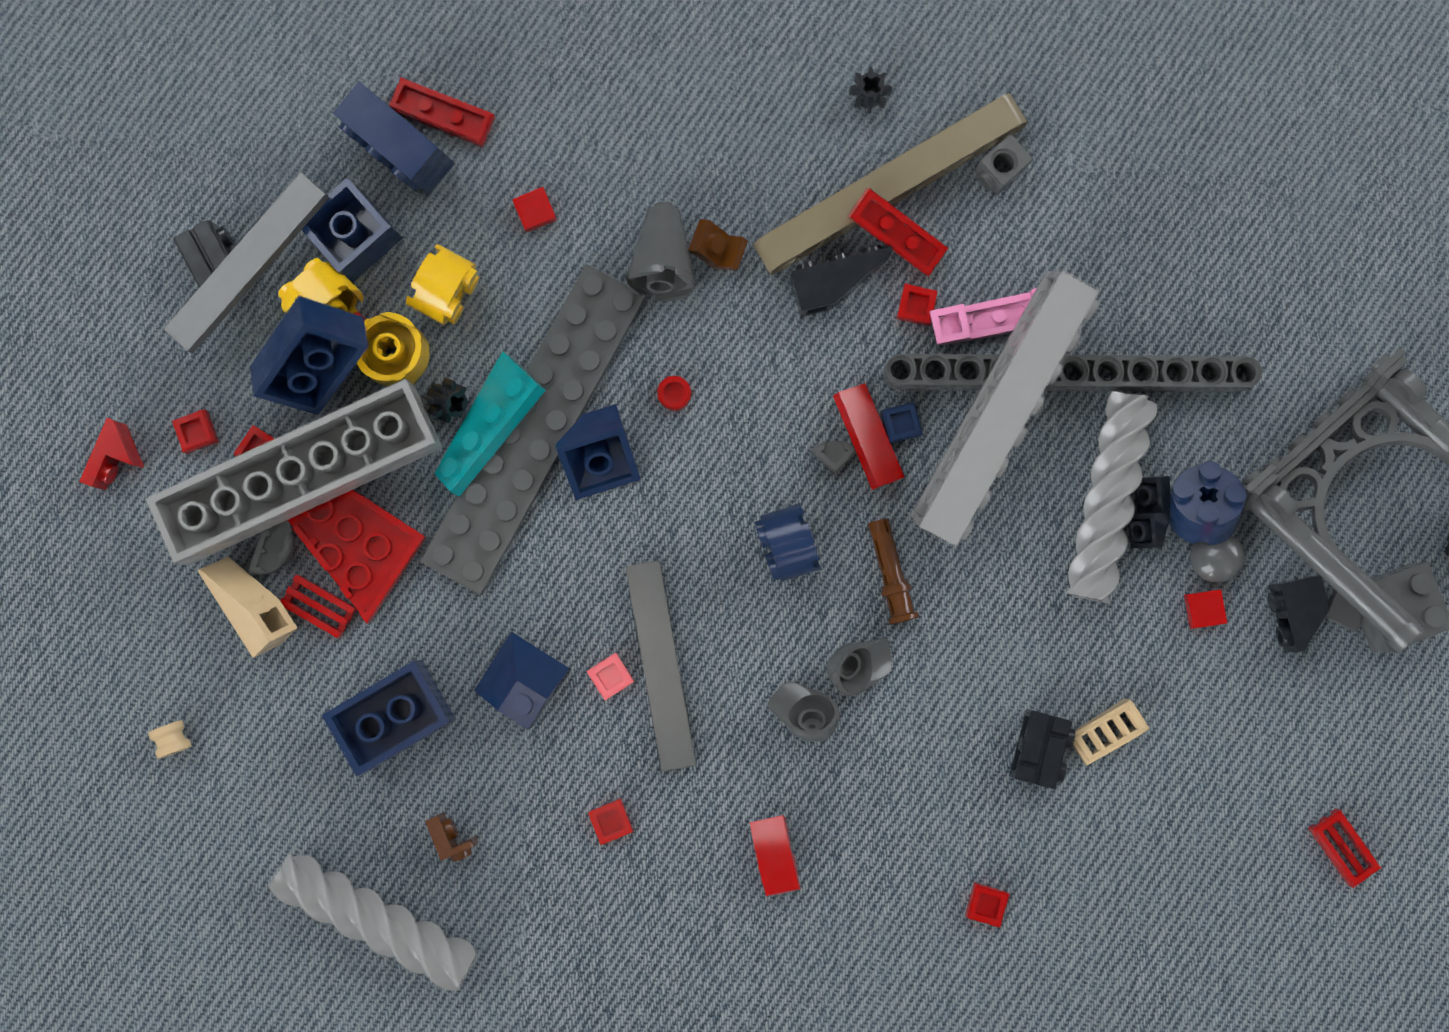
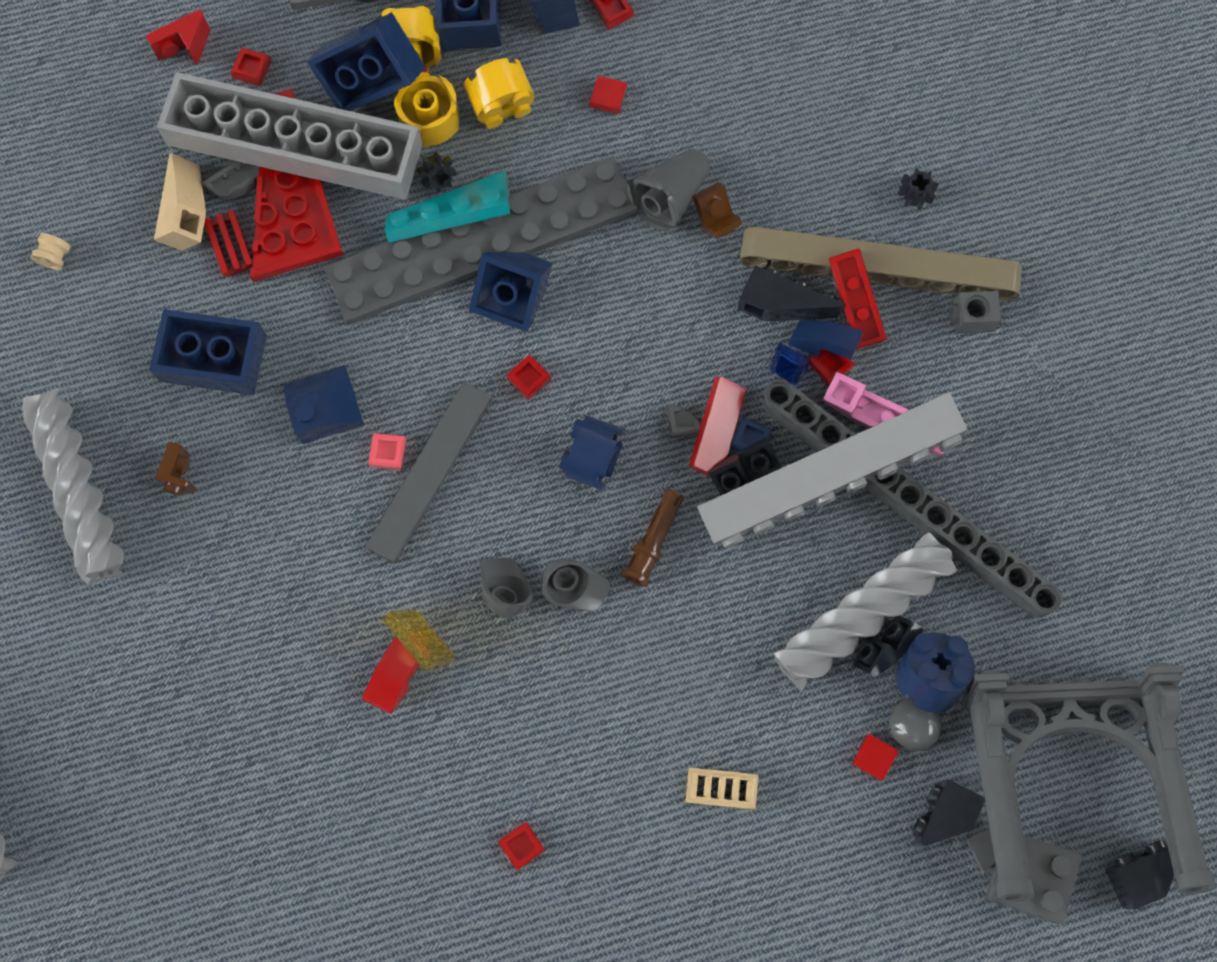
camera: 40 degrees right, 10 degrees down
(610, 821) = (298, 554): red tile -> none
(674, 393) = (601, 291): red tile -> none
(675, 517) = (528, 377): none -> red tile
(776, 813) = (419, 639): none -> clear yellow tile
(886, 335) = (789, 364): none -> clear blue slope
(904, 283) = (834, 337): none -> dark blue slope
(915, 459) = (745, 466): none -> black slope
(1042, 749) = (659, 758): black brick -> none

